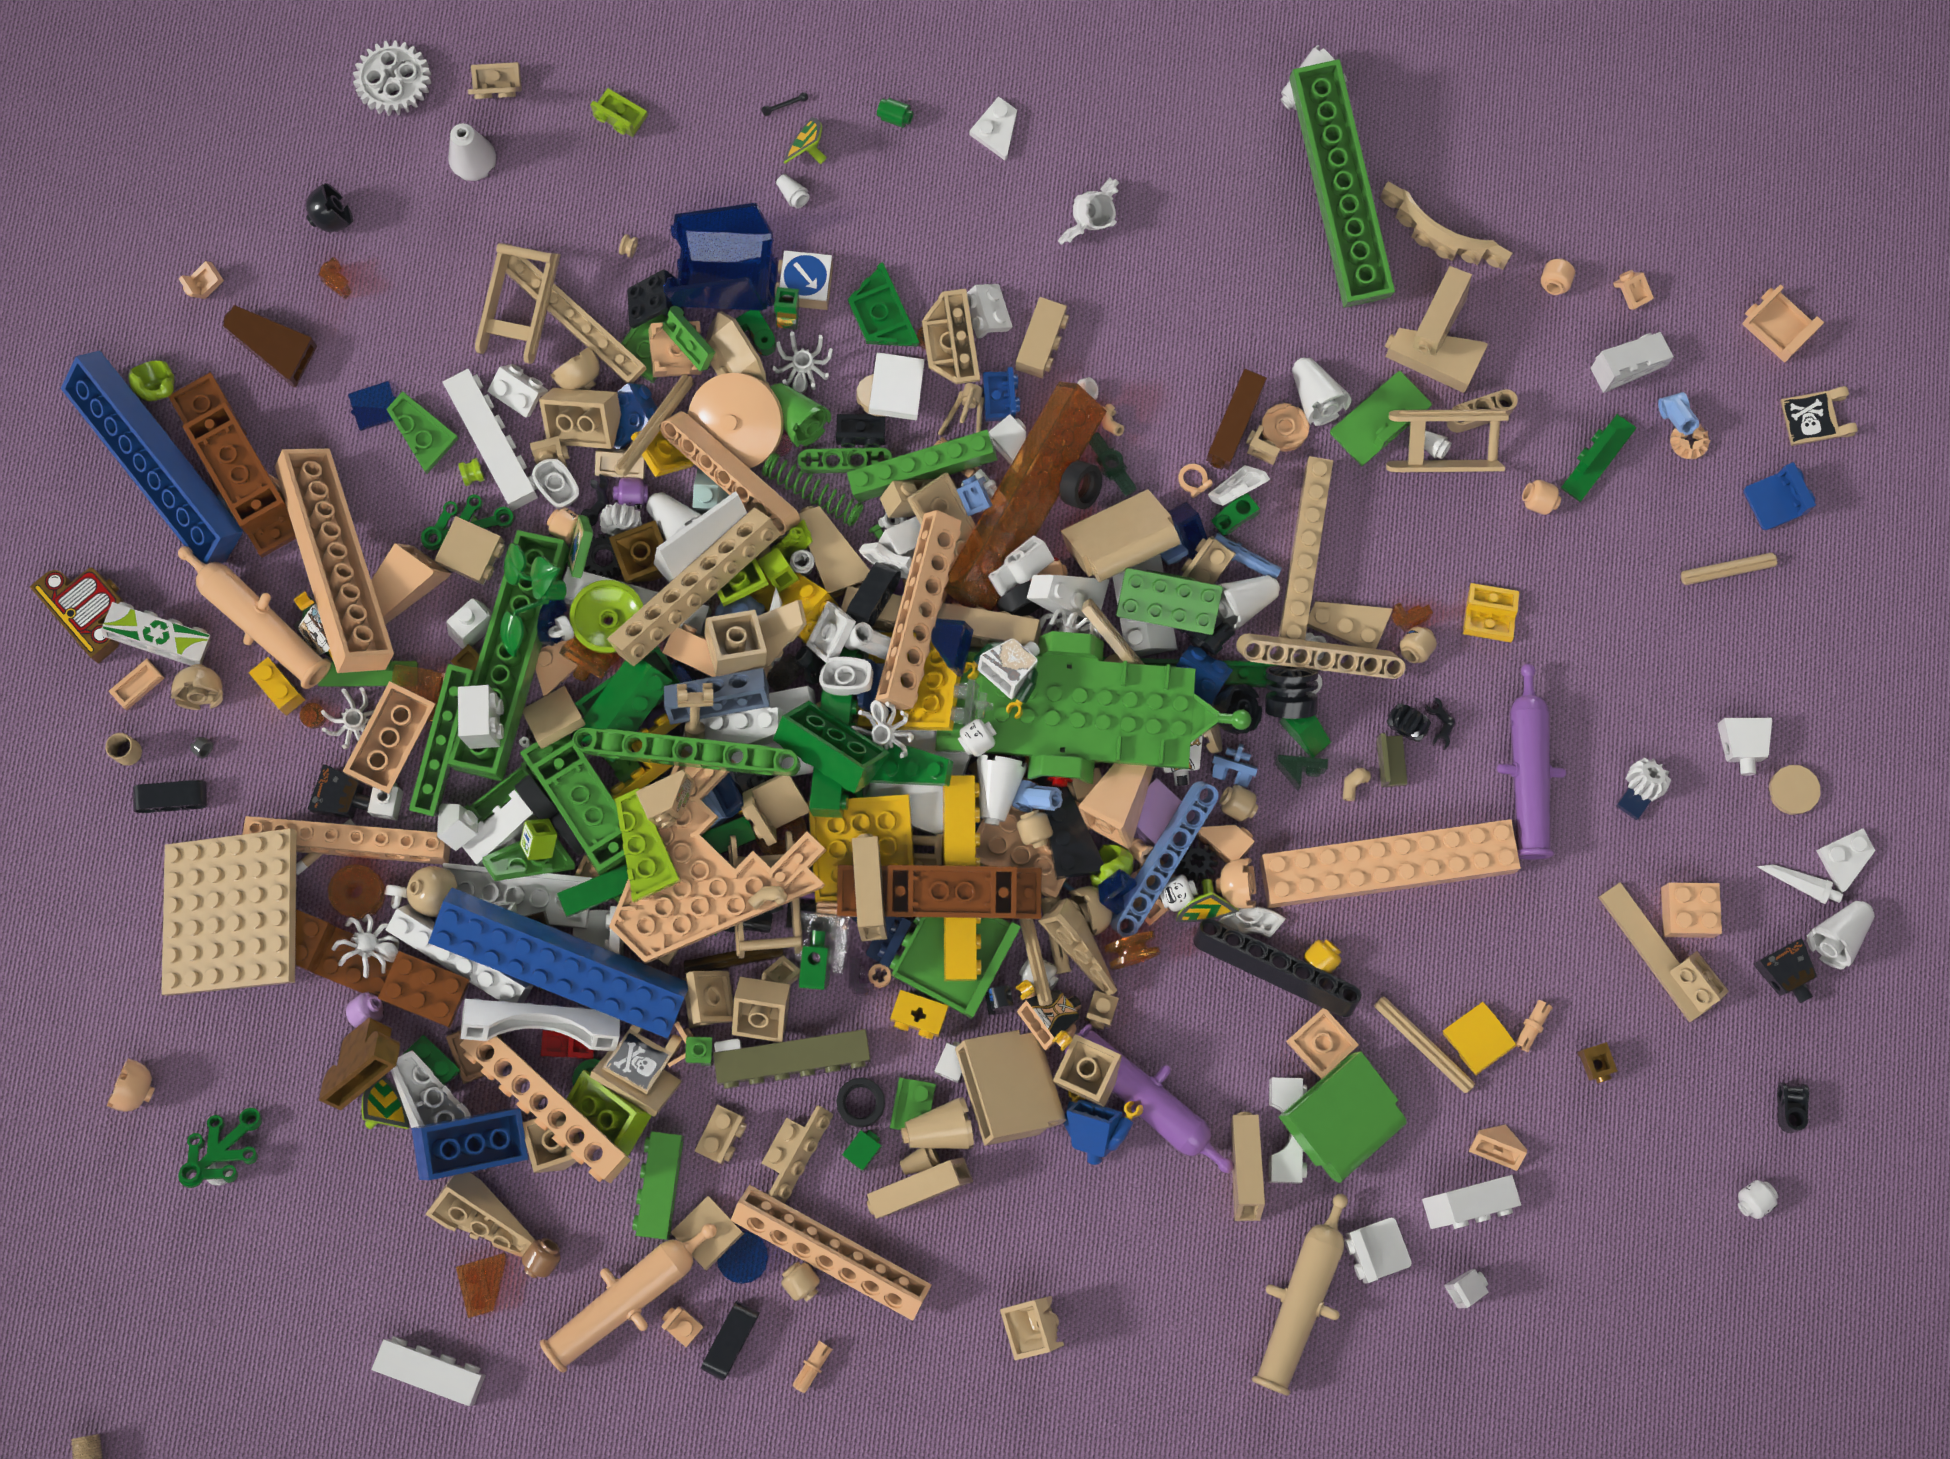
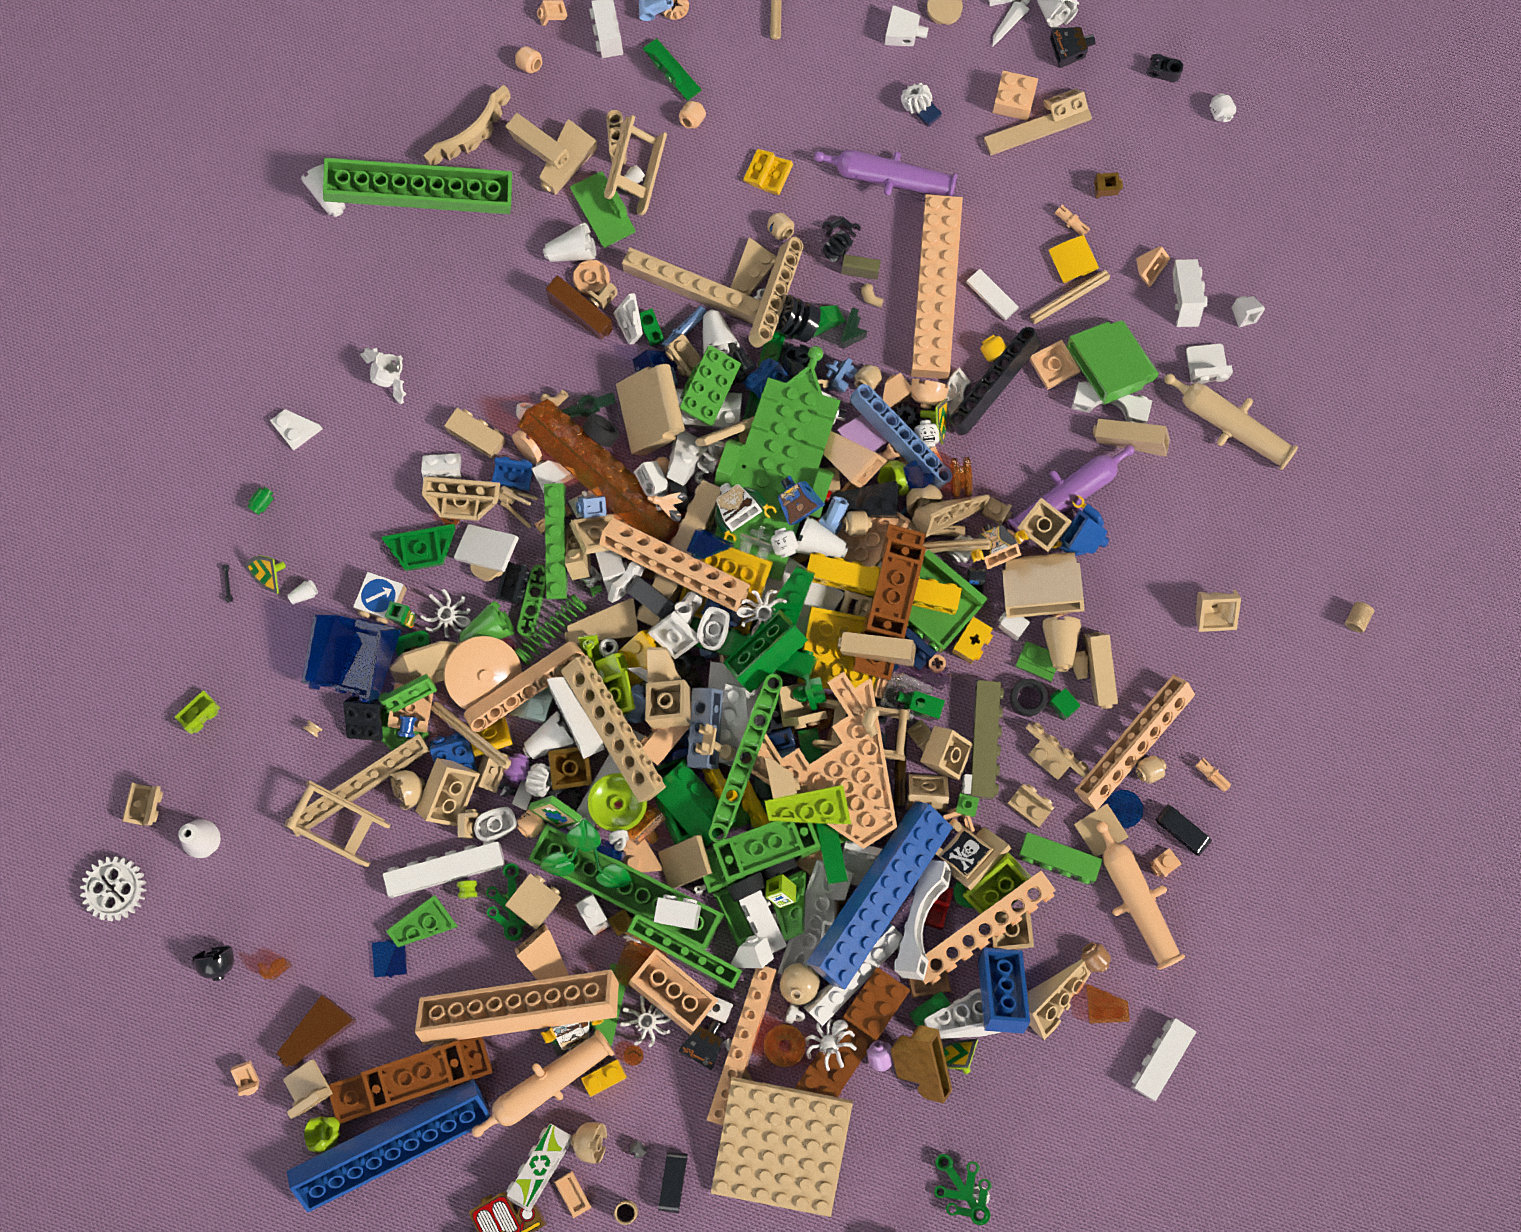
camera: 75 degrees left, 0 degrees up
(201, 352) = (307, 1088): none -> tan bracket
(517, 389) = (408, 840): white bracket -> none
(592, 506) = (522, 797): none -> white sticker
(650, 348) = (407, 726): none -> blue bush
(793, 816) = (812, 691): none -> green hips
(999, 582) = (666, 504): none -> light nougat piece
(1035, 741) = (798, 500): none -> torso
(1037, 402) = (527, 447): none -> light nougat tile
(1193, 490) = (619, 344): light nougat piece -> none
(1399, 941) = (992, 294): none -> white tile
(1414, 617) = (759, 229): clear orange bracket -> none

